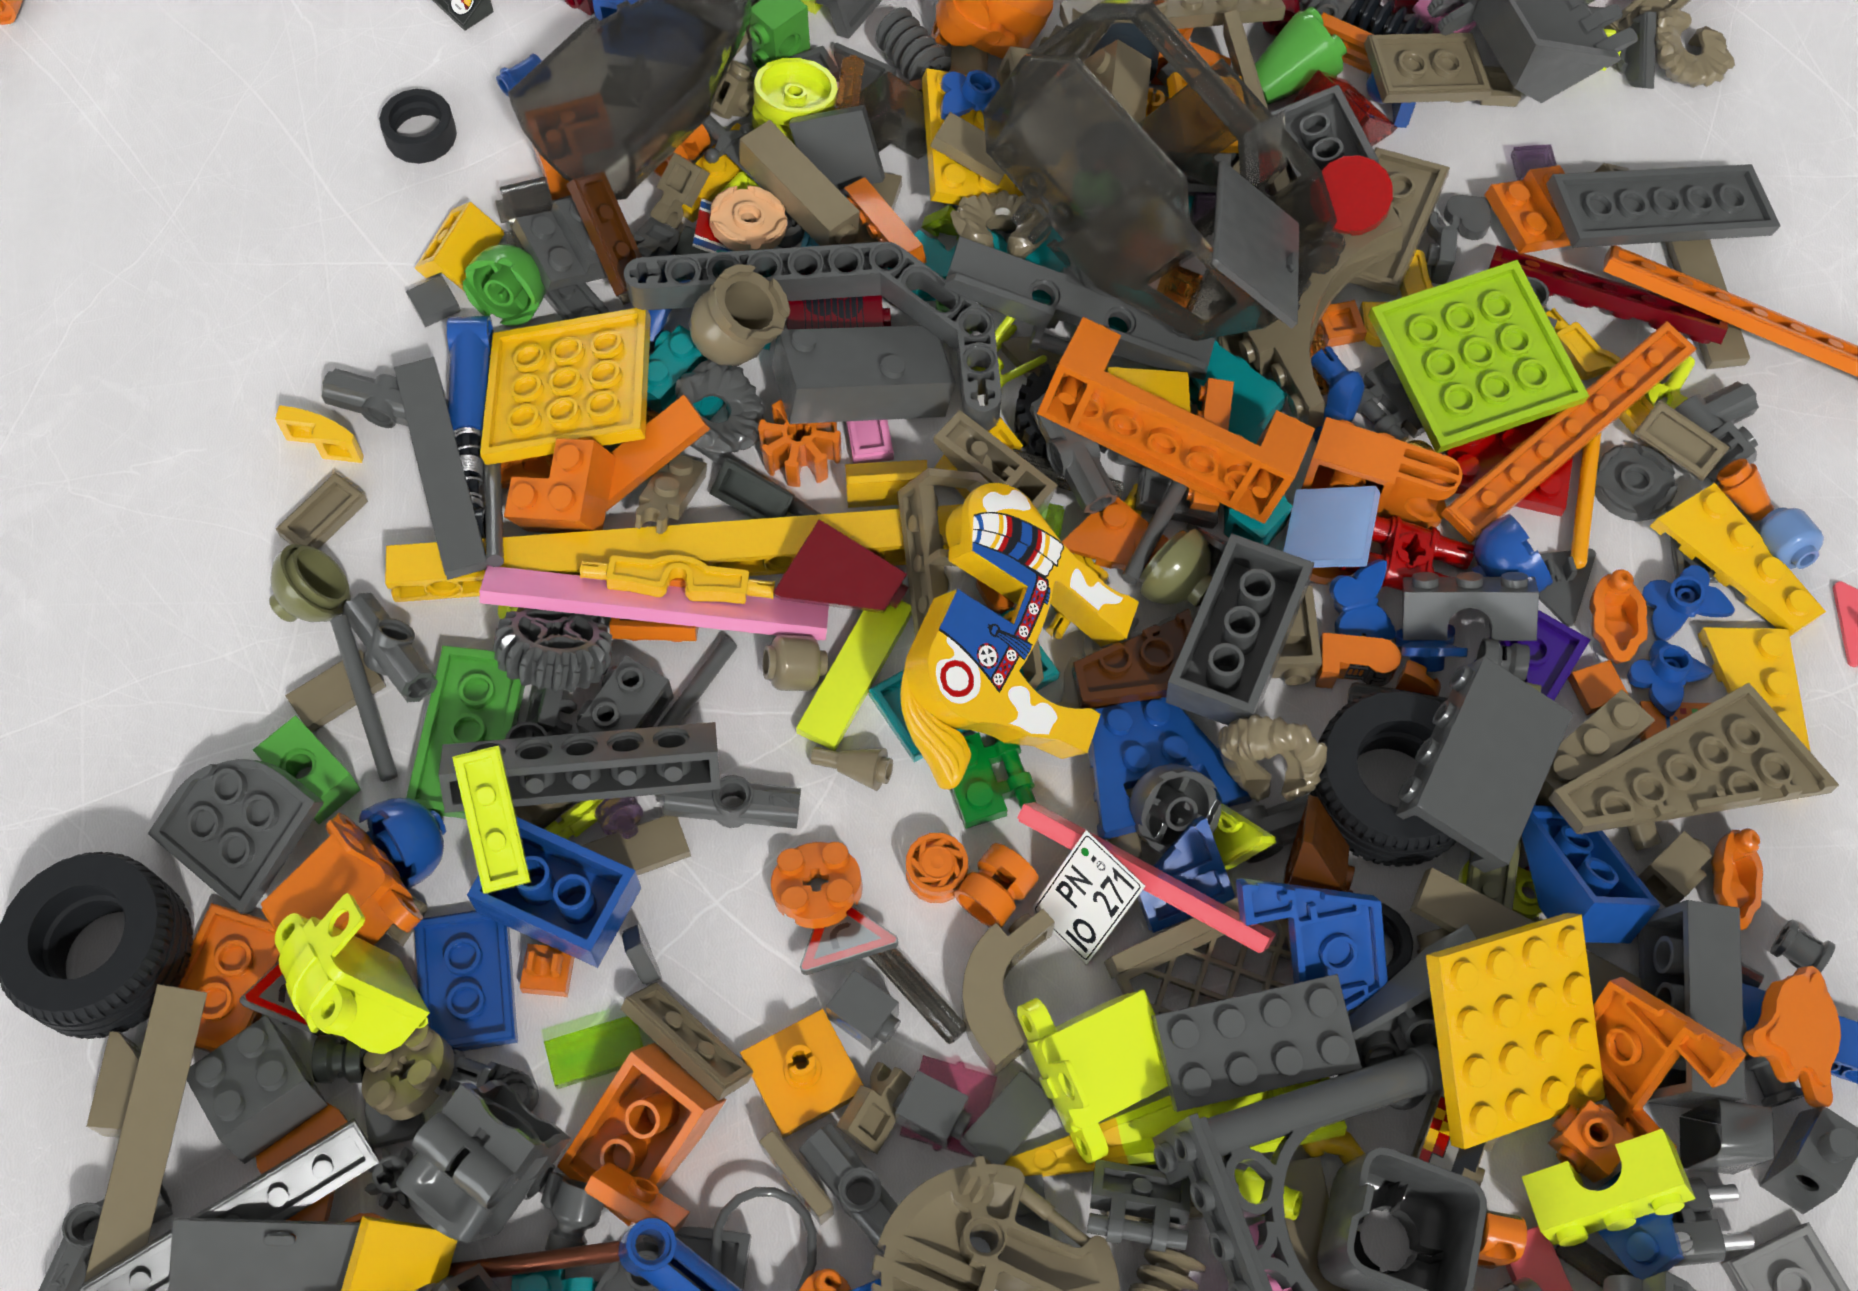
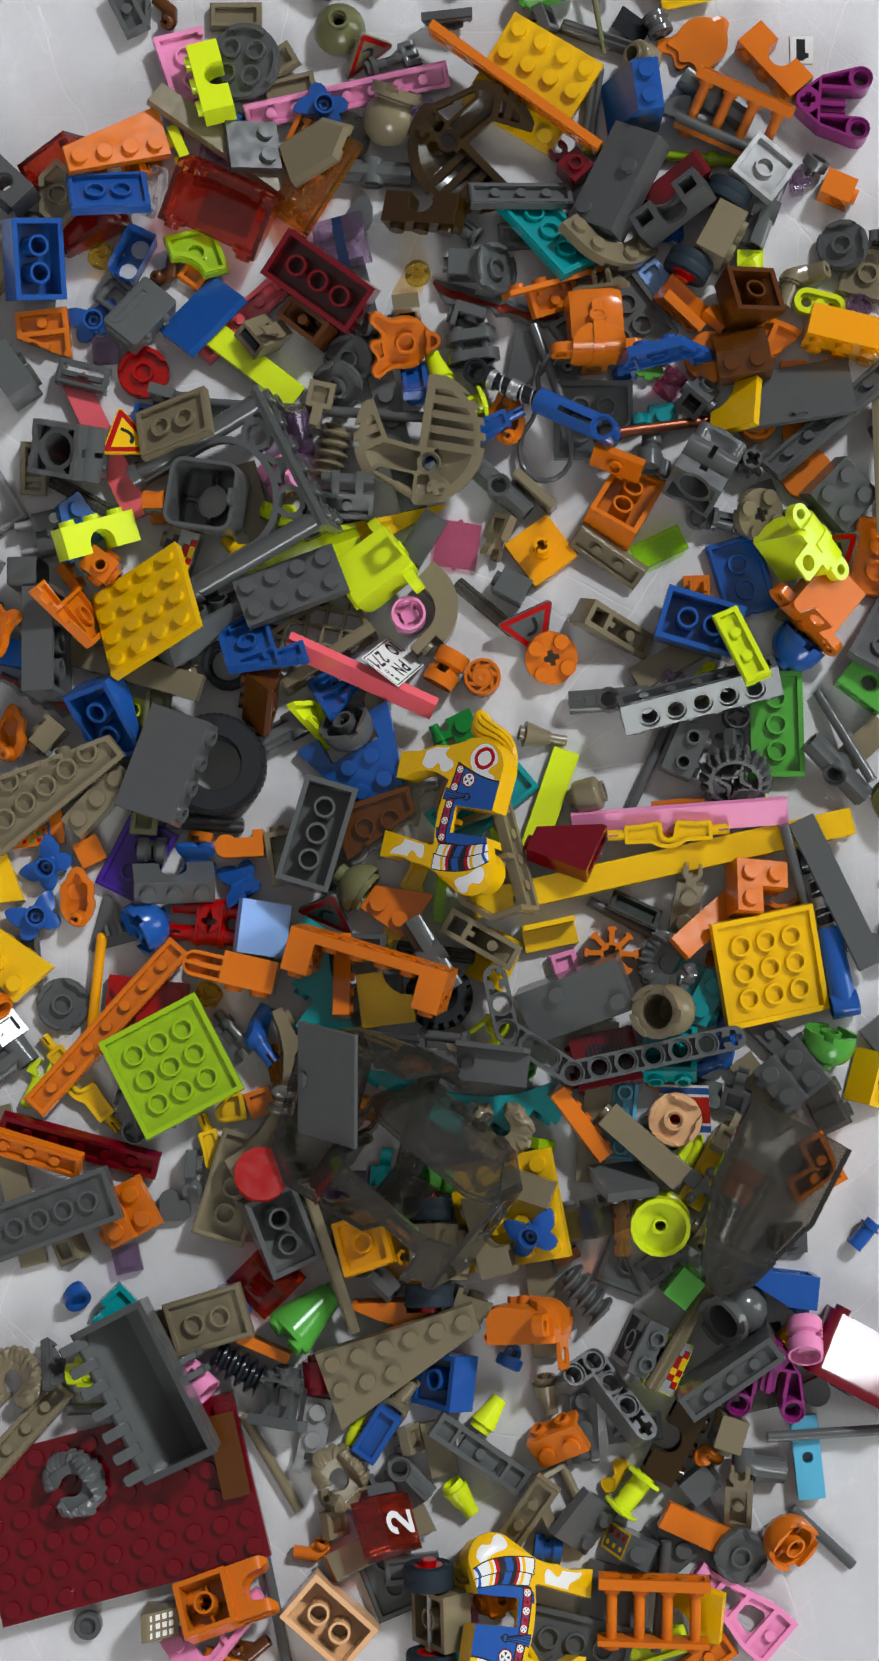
camera: 175 degrees right, 20 degrees up
(605, 226) = (764, 1078): reddish brown tile -> none
(640, 955) = (645, 603): dark grey tile -> none
(706, 919) = (611, 627): none -> dark tan slope
(933, 1110) = (464, 534): dark grey brick -> none
(1052, 976) = (408, 616): none -> bright pink wheel
(1153, 532) = (375, 905): dark grey bar -> none
(1260, 738) = (297, 758): dark tan piece -> none
(1555, 113) = (114, 1300): none -> teal plate
(1606, 124) = (76, 1296): none -> blue tile
(1681, 441) = (34, 1031): dark tan tile -> none

